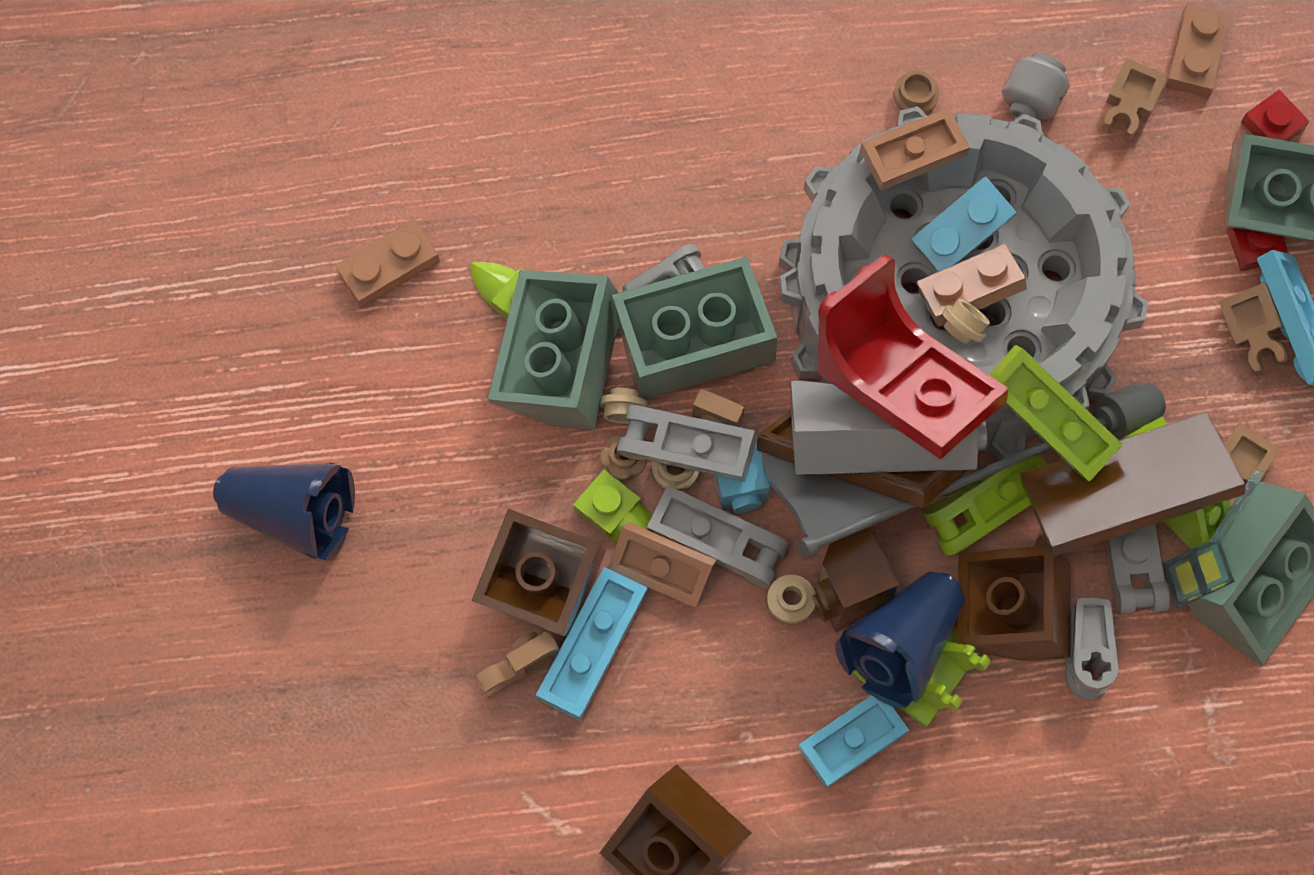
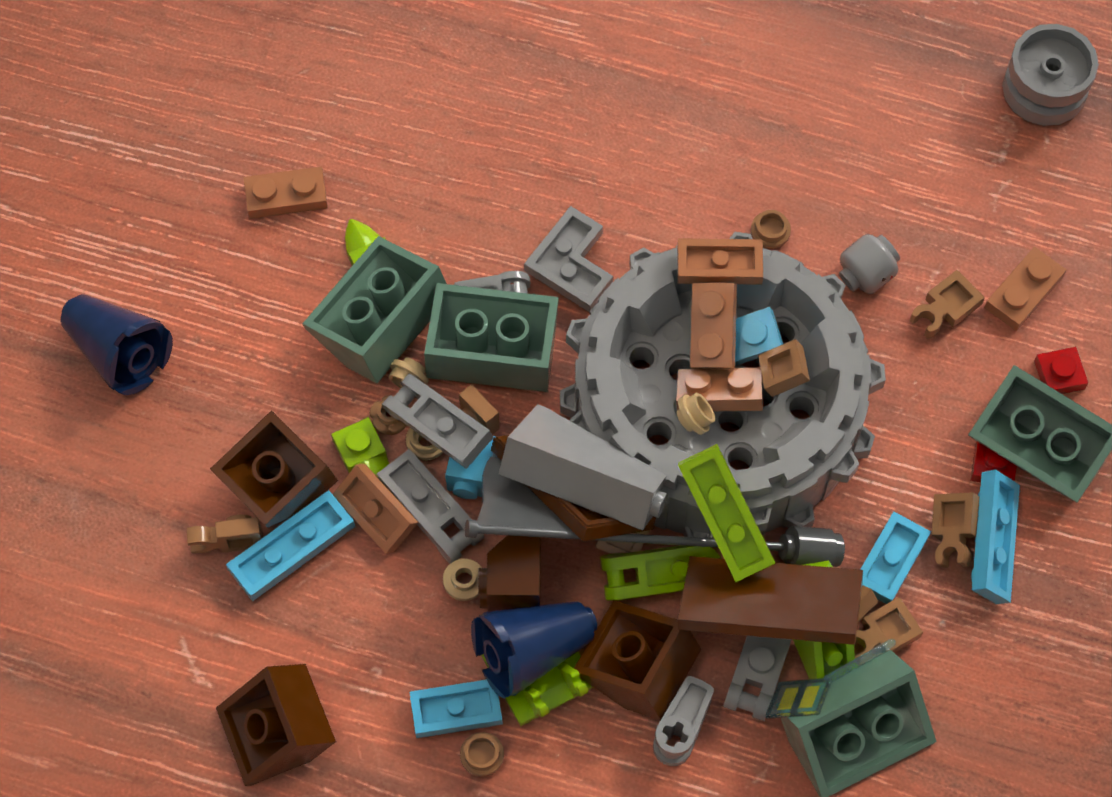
camera: 25 degrees right, 5 degrees down
(720, 218) = (562, 264): none -> light grey plate
(896, 368) = (610, 416): red bracket -> none
(903, 775) = (482, 754): none -> medium nougat plate
(938, 220) = (713, 326): none -> nougat plate
(1030, 234) = (783, 367): none -> medium nougat plate
(1211, 381) = (893, 556): none -> medium azure plate

